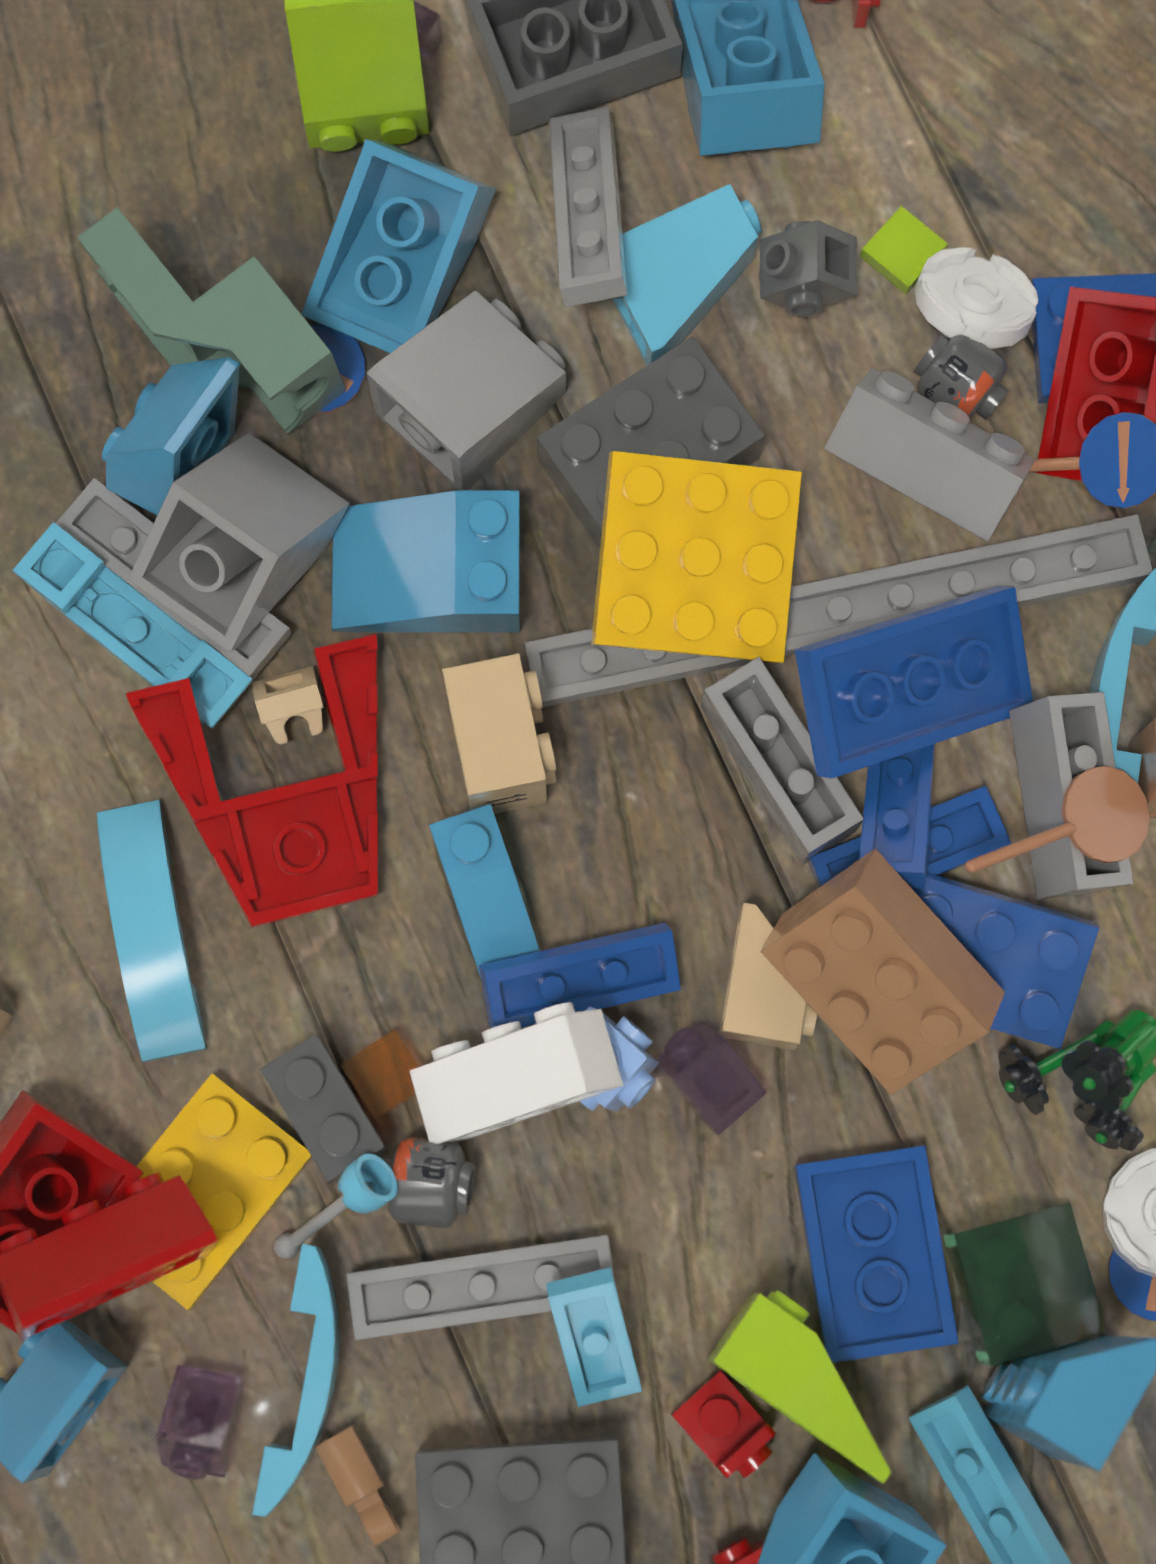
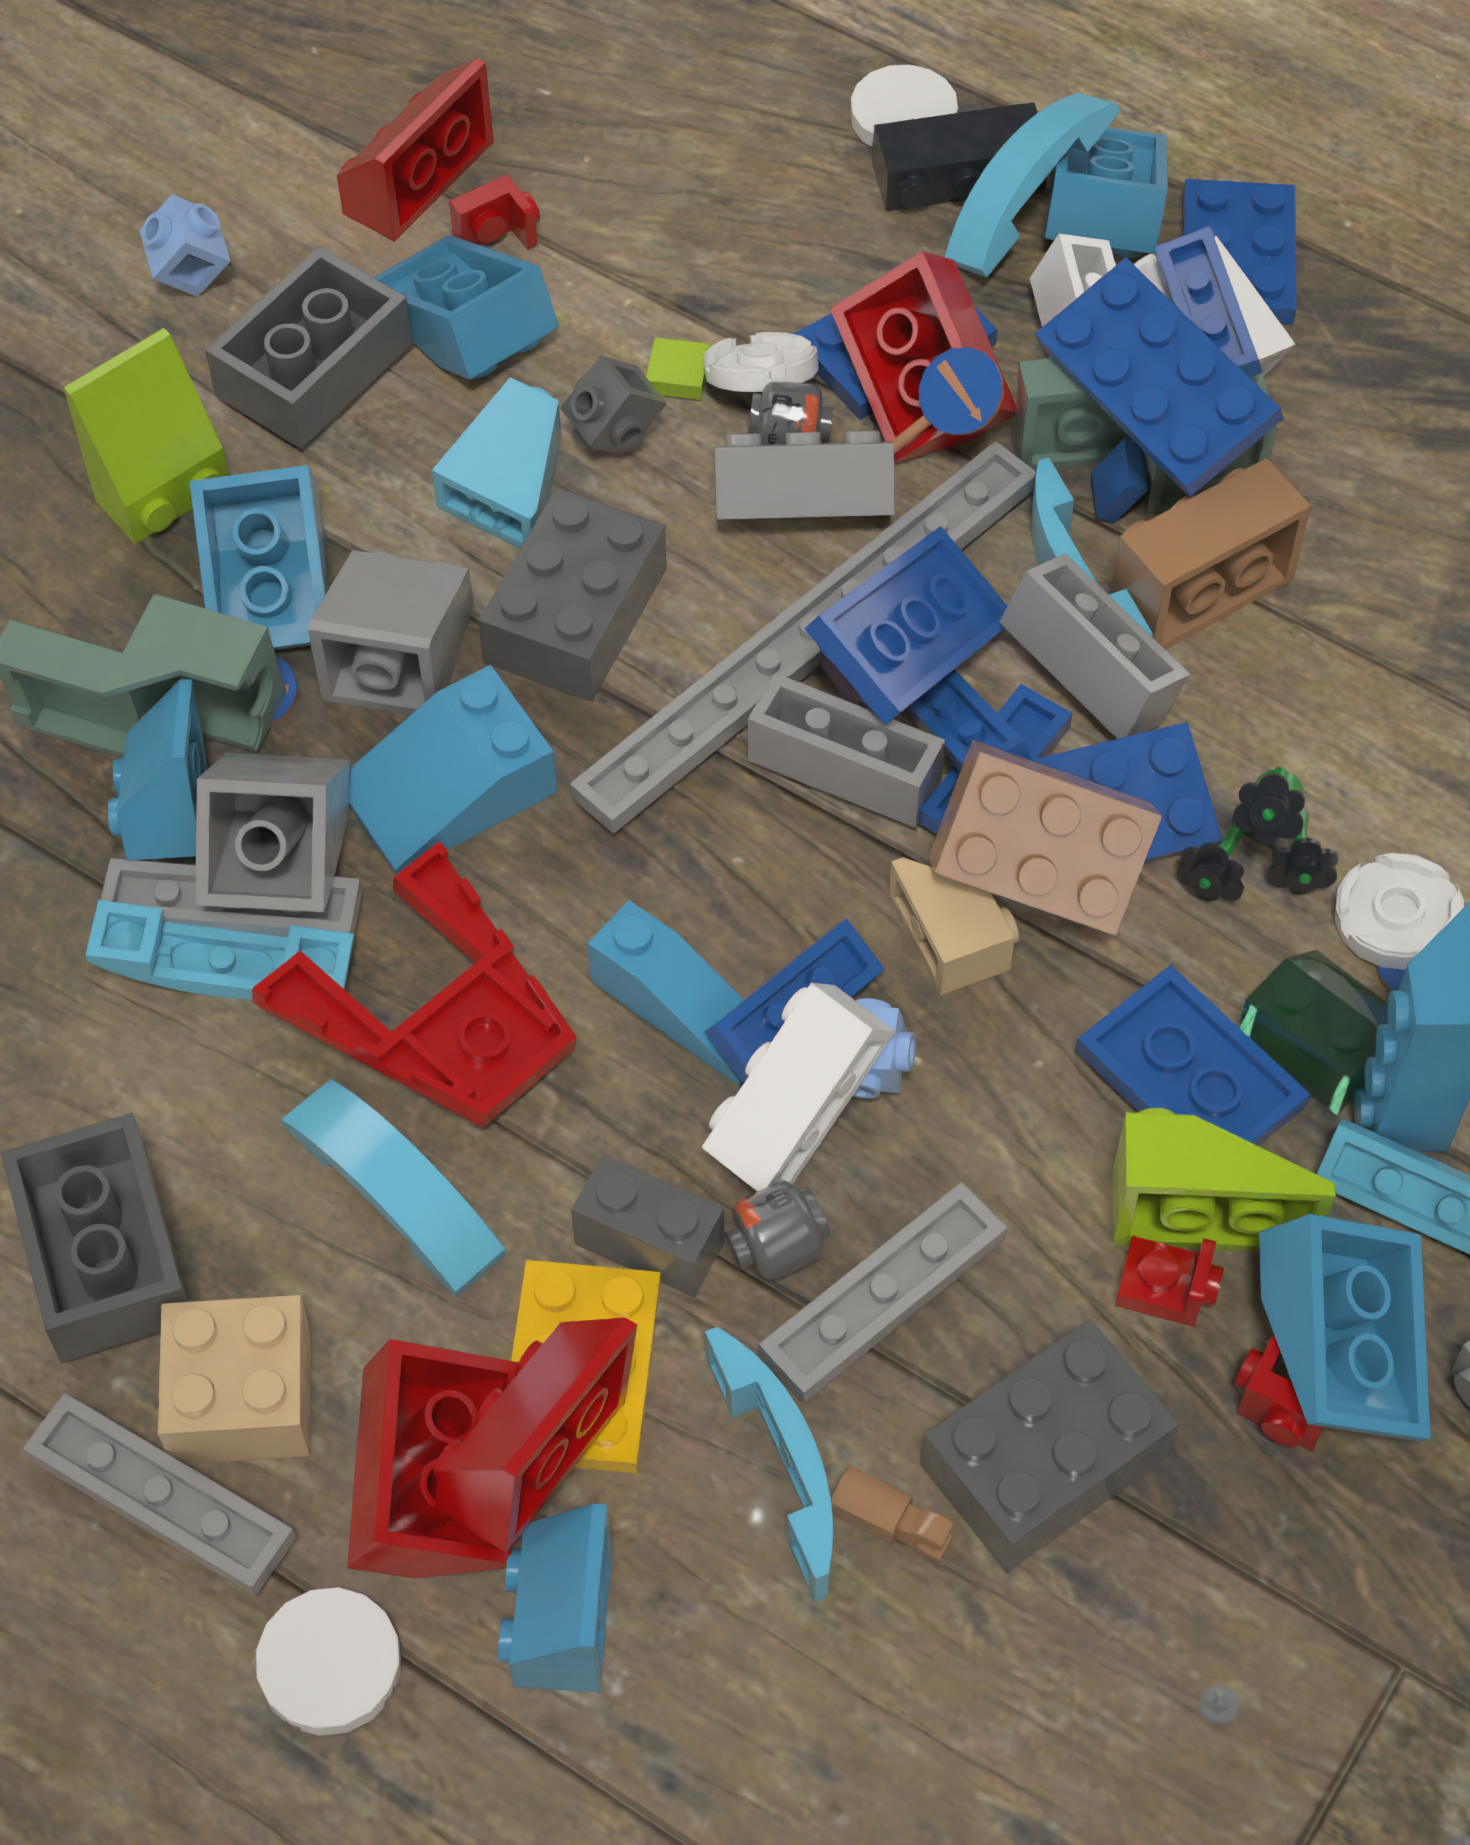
camera: 30 degrees left, 20 degrees down
(198, 1422) = (712, 1551): bracket -> none
(288, 696) = (390, 936): tan tile -> none
(354, 1185) = (728, 1248): medium azure hinge -> none
(382, 1074) = (685, 1167): clear orange tile -> none
(496, 734) = (595, 846): tan brick -> none
(587, 207) = (407, 446): light grey plate -> none
(594, 1337) = (1009, 1262): medium azure plate -> none
(696, 557) = (670, 634): yellow plate -> none
(710, 1076) = (958, 1015): clear purple bracket -> none
(1101, 815) = (1125, 633): nougat piece -> none

